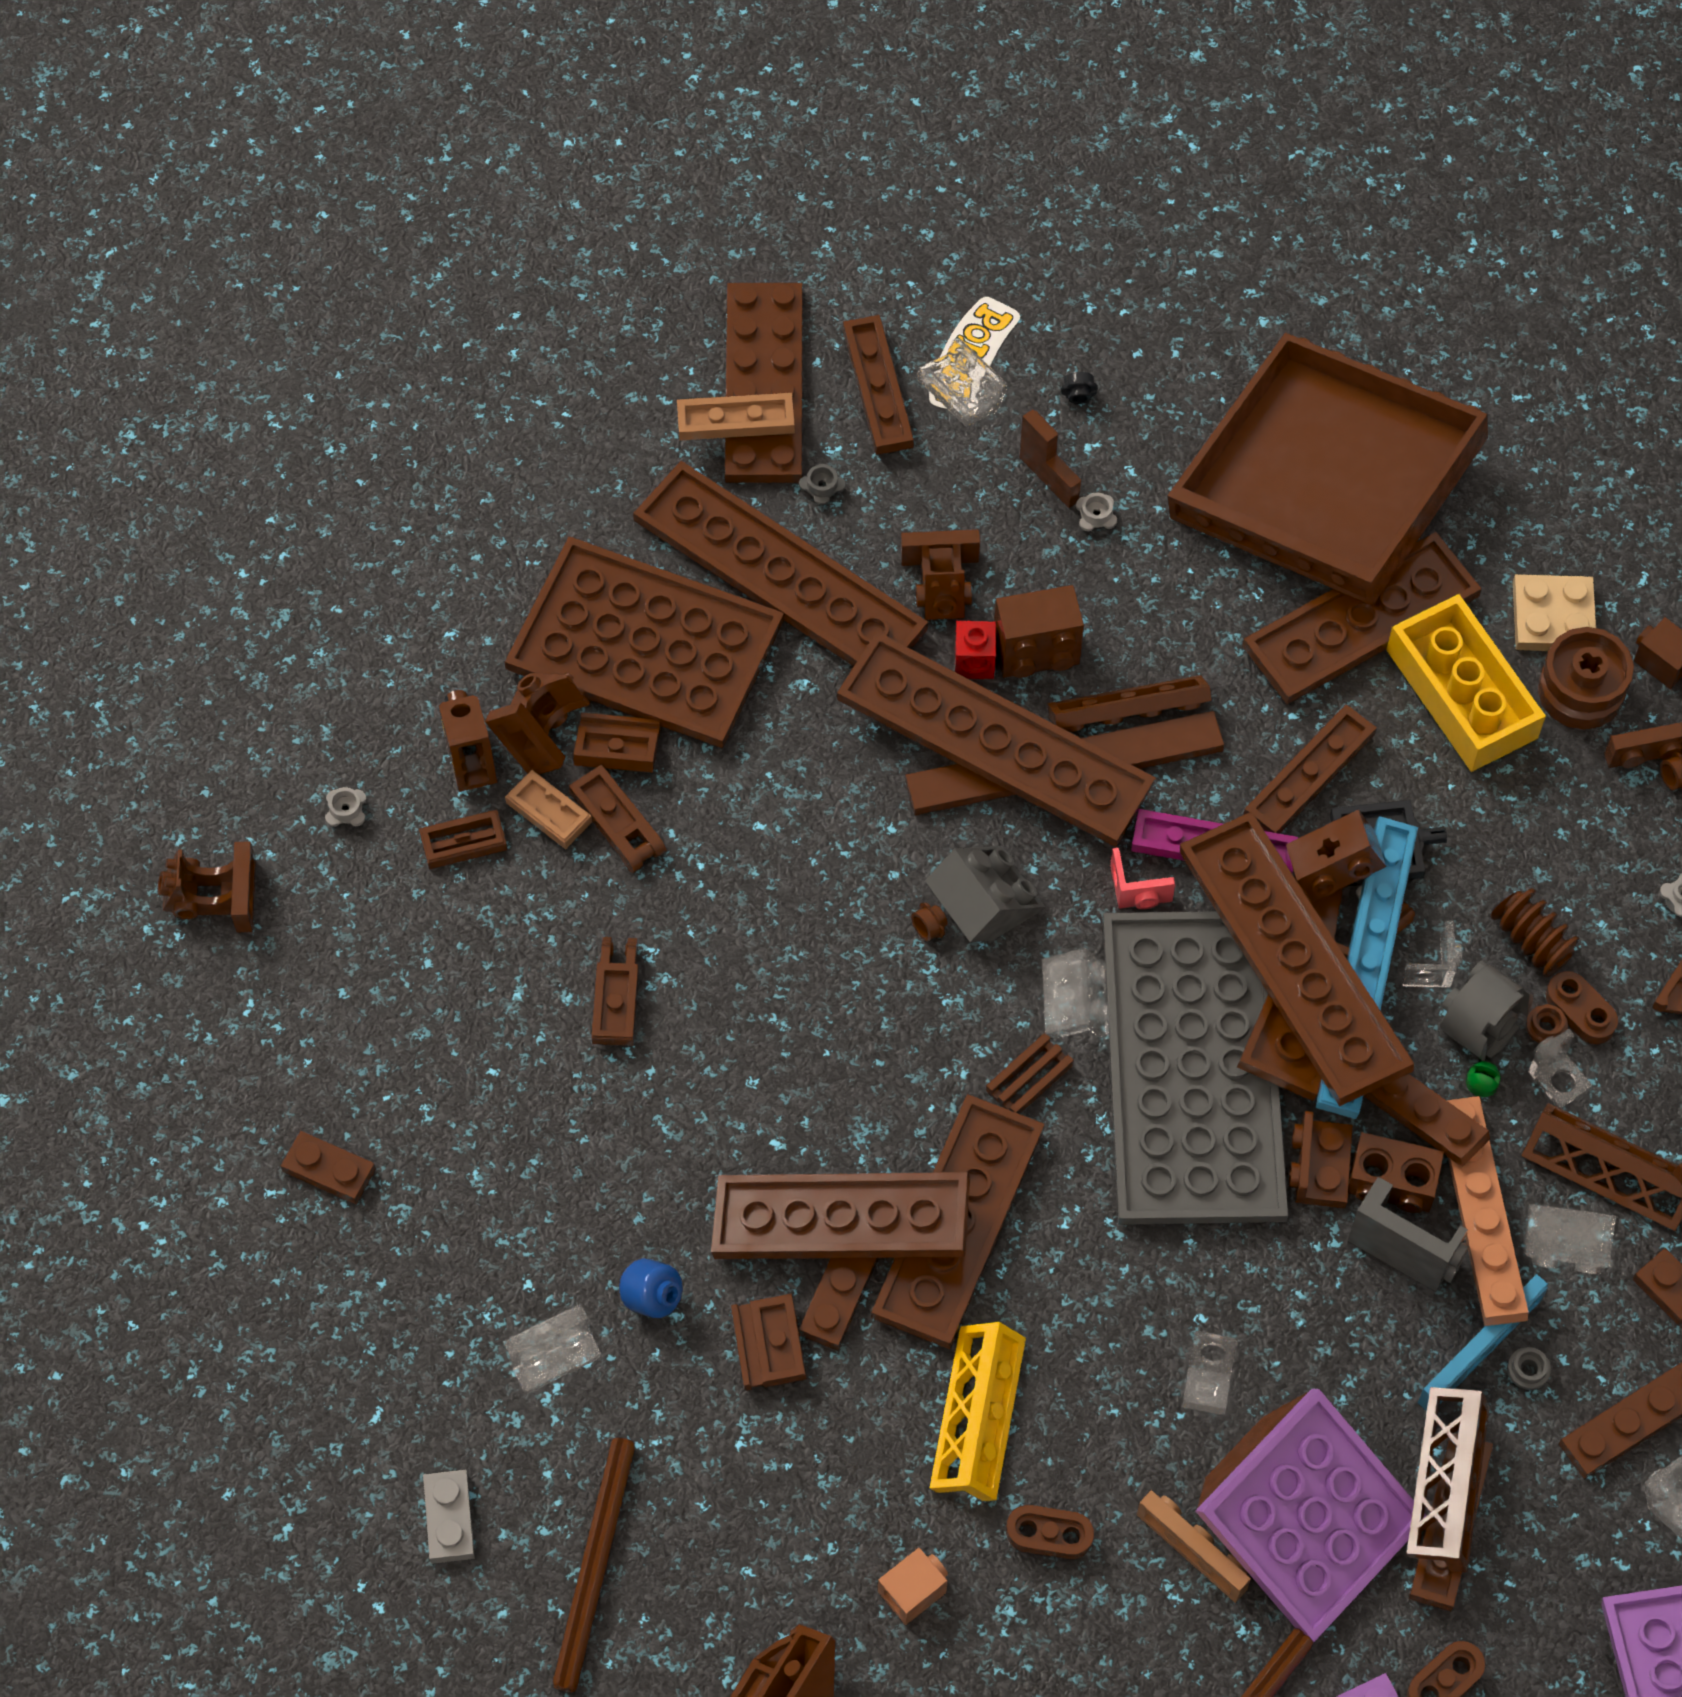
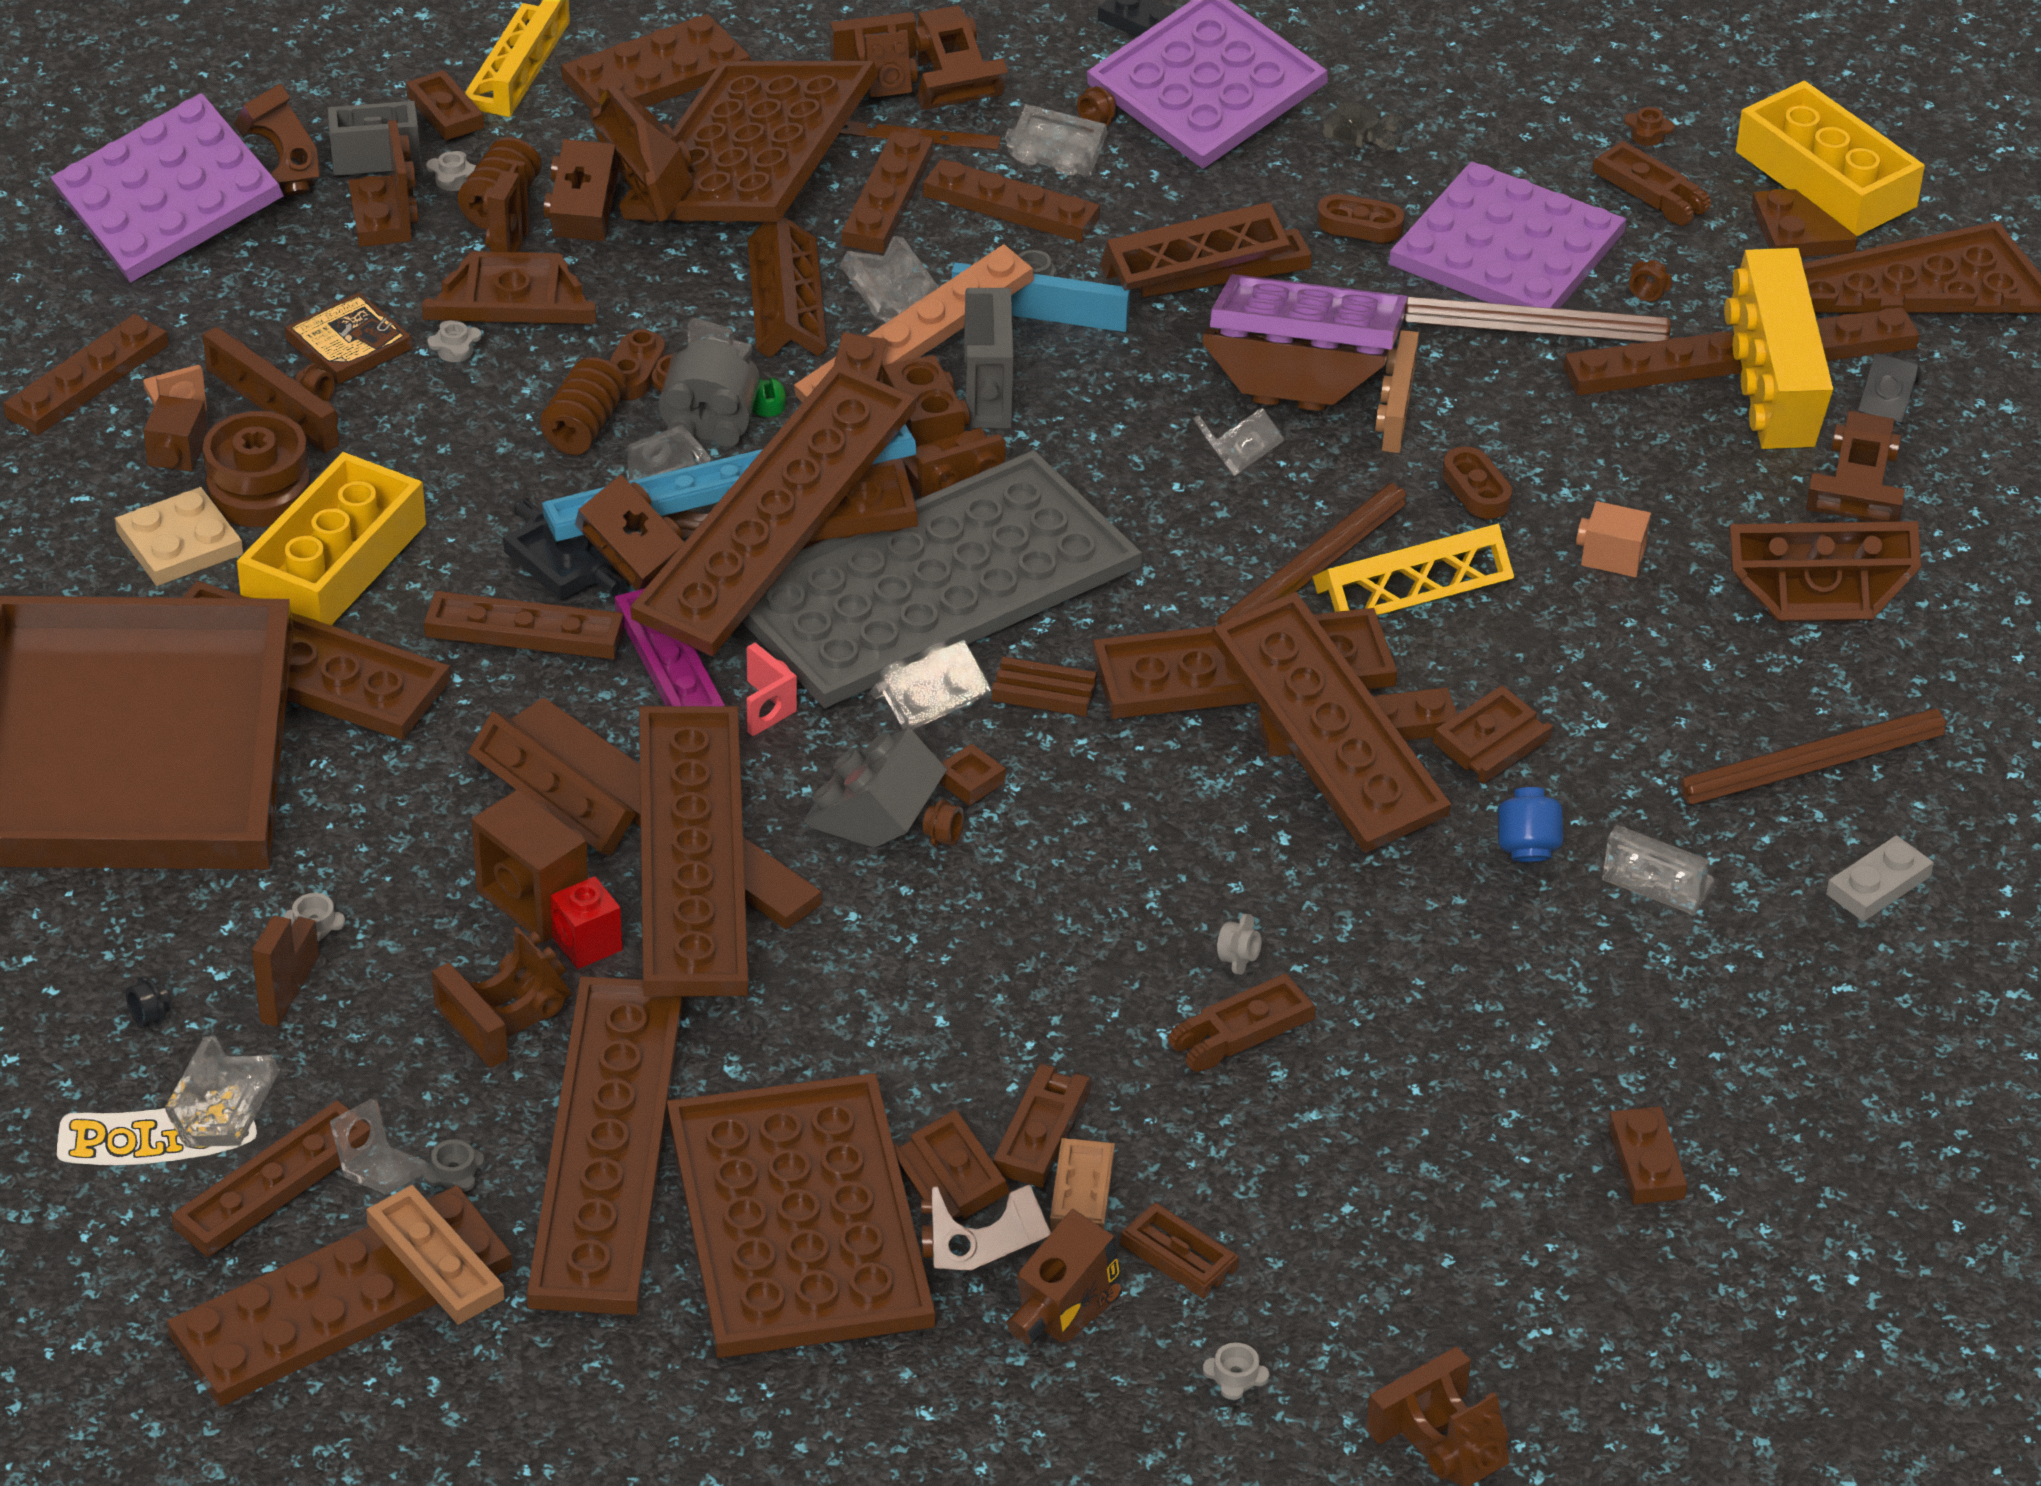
camera: 125 degrees left, 20 degrees down
(684, 1031) = (1239, 943): none -> light grey plate
(850, 443) = (374, 1162): none -> clear bracket
(965, 966) = (972, 774): none -> reddish brown plate
(1044, 1351) = (1322, 551): none -> reddish brown axle

